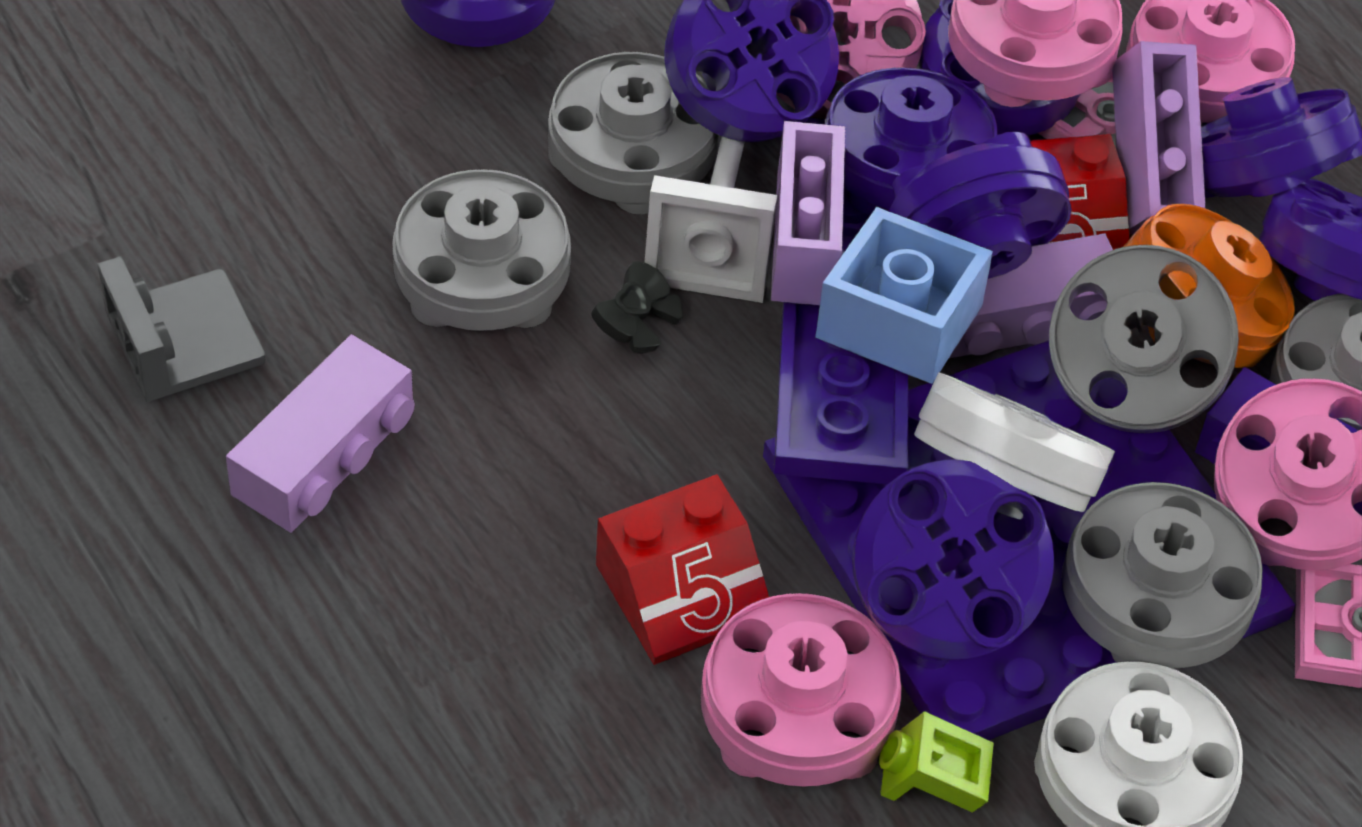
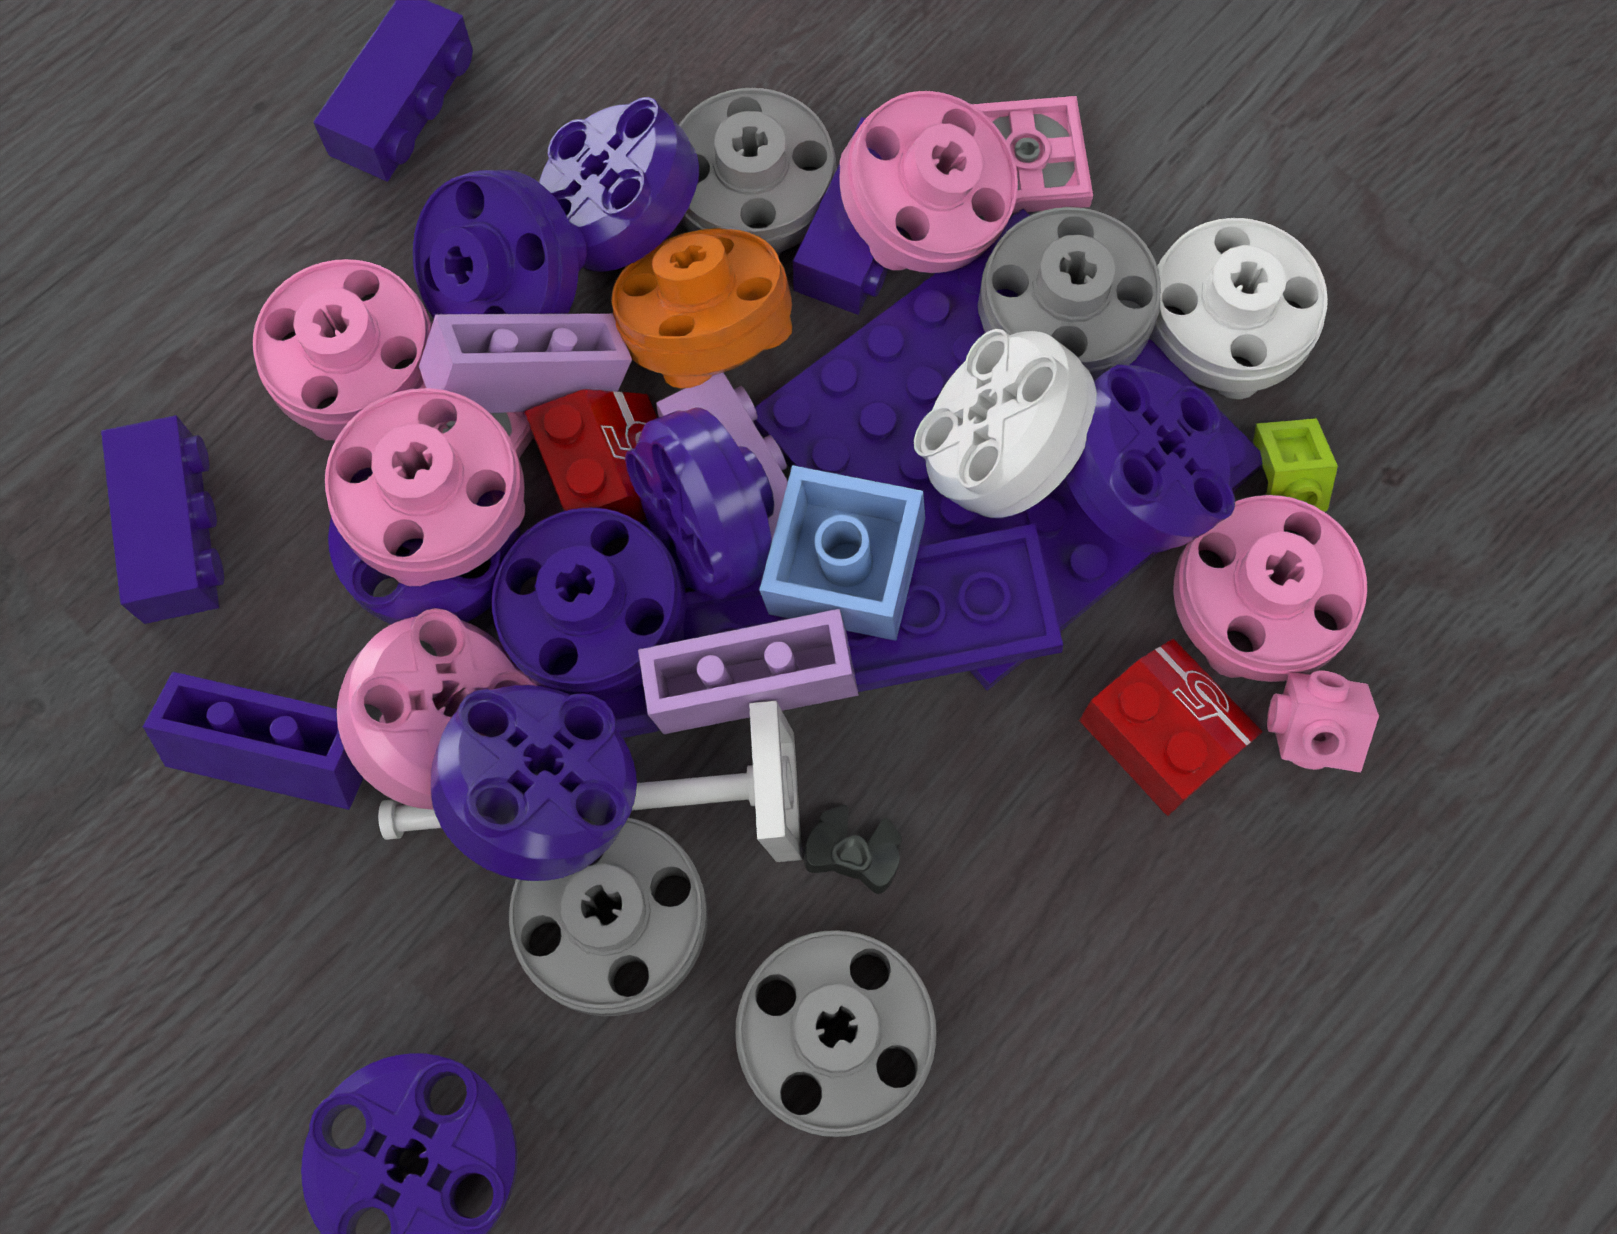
camera: 100 degrees left, 20 degrees up
(321, 433) = (1135, 1127): lavender brick -> none
(644, 685) = (1323, 721): none -> bright pink brick
(1184, 330) = (829, 329): light grey piece -> none

